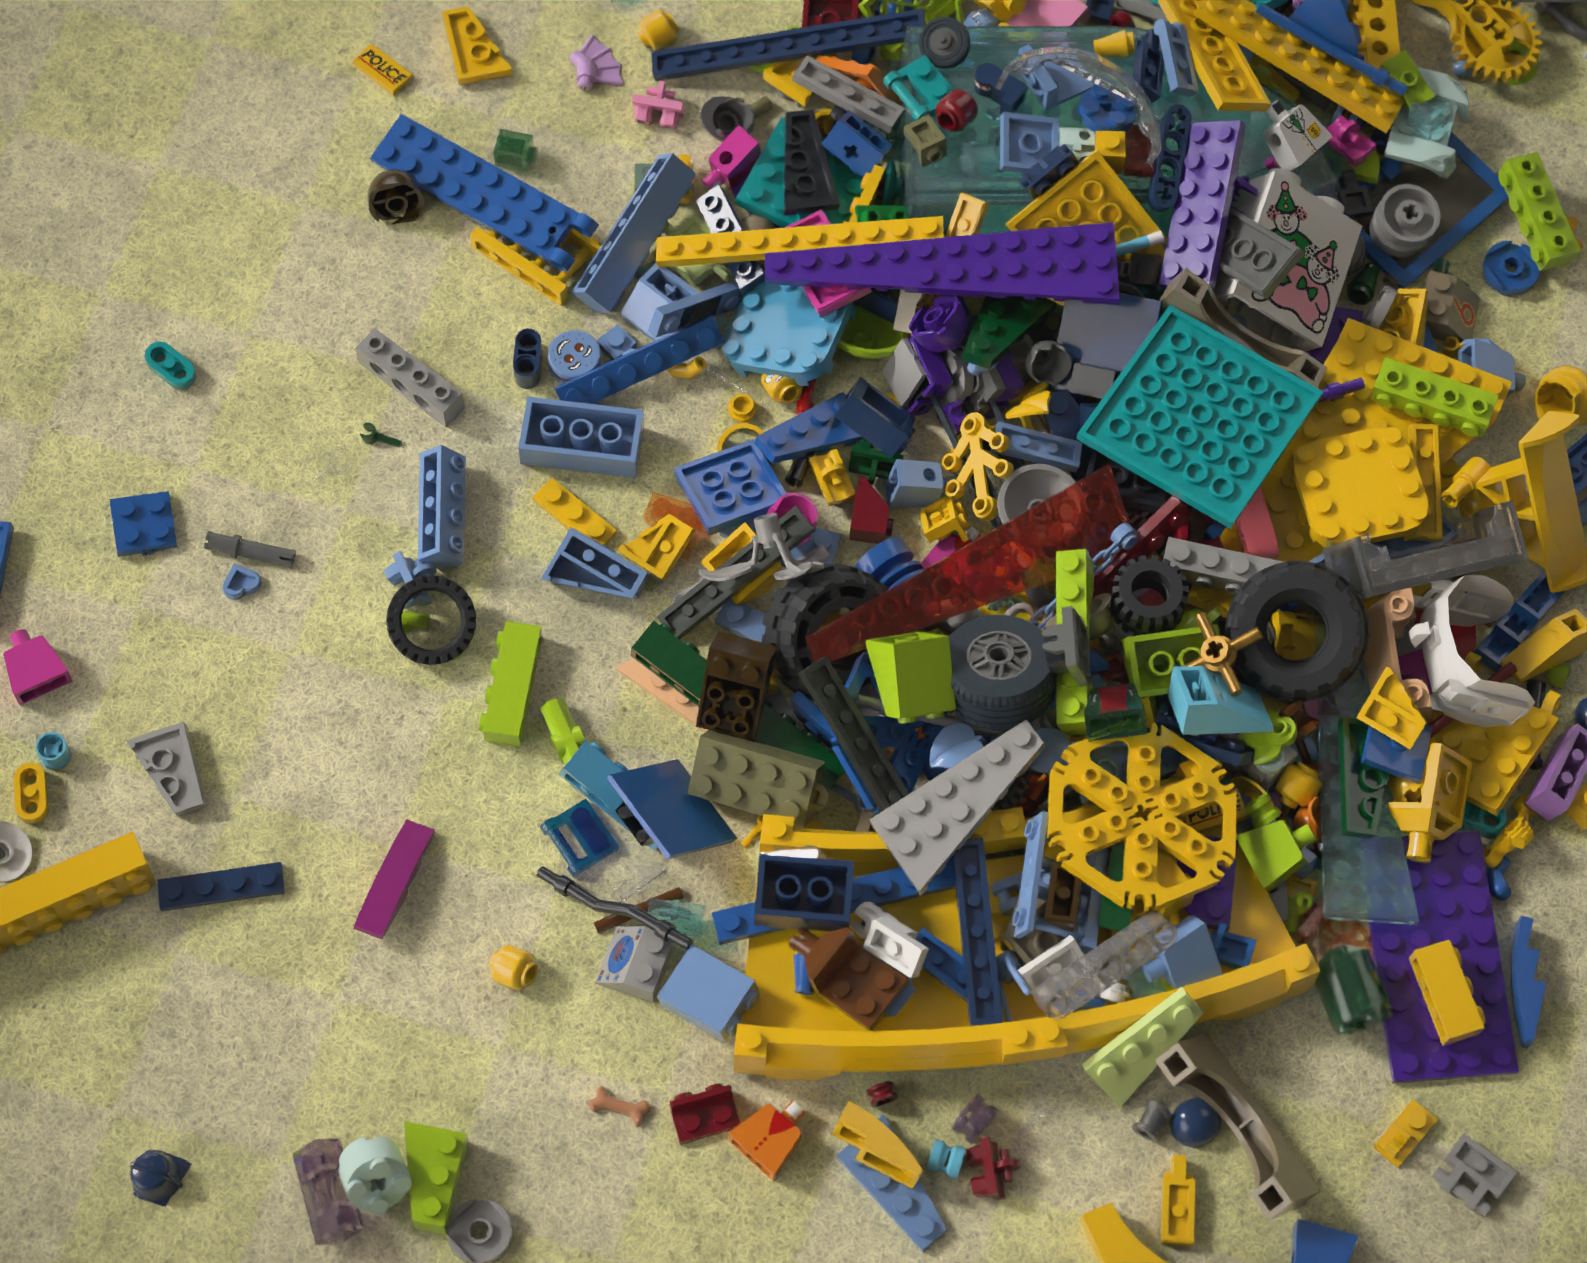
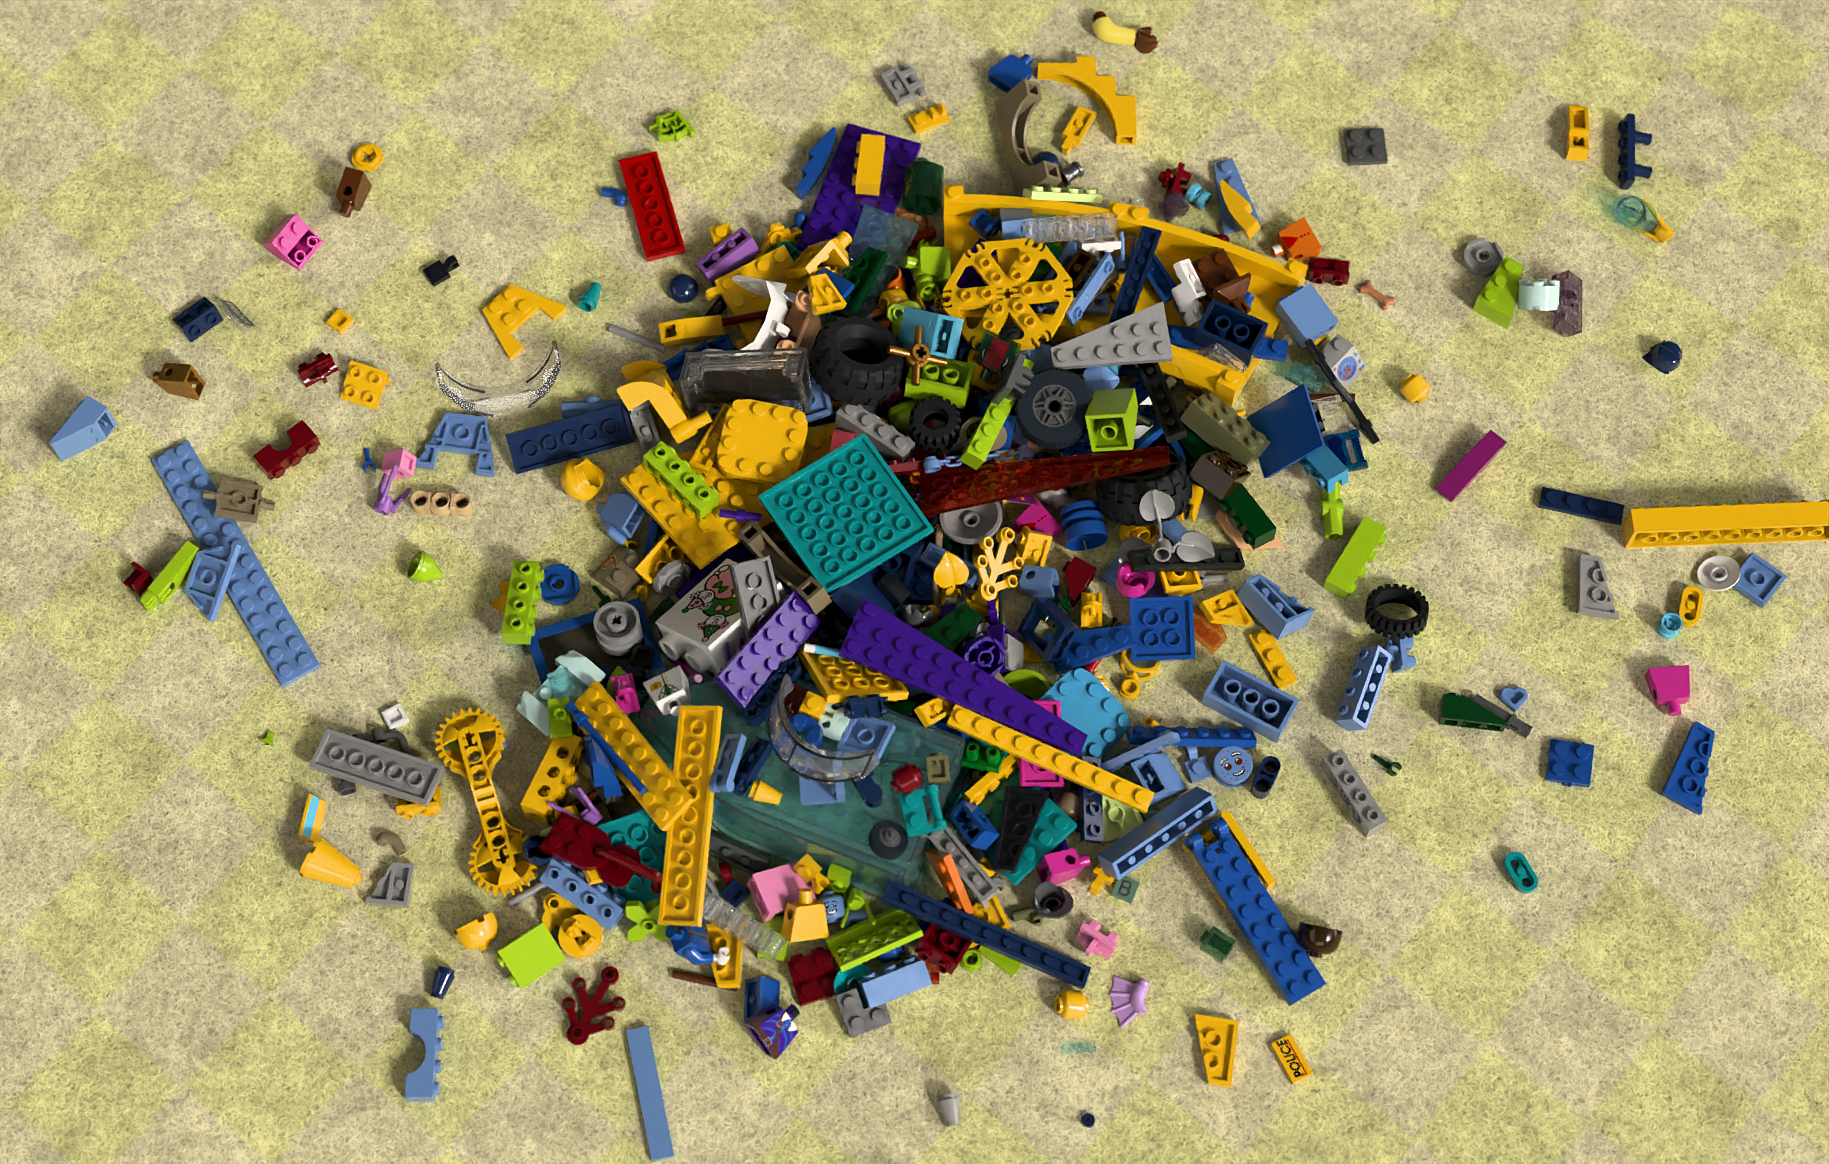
camera: 155 degrees left, 0 degrees up
(299, 530) = (1463, 712): none -> dark green slope

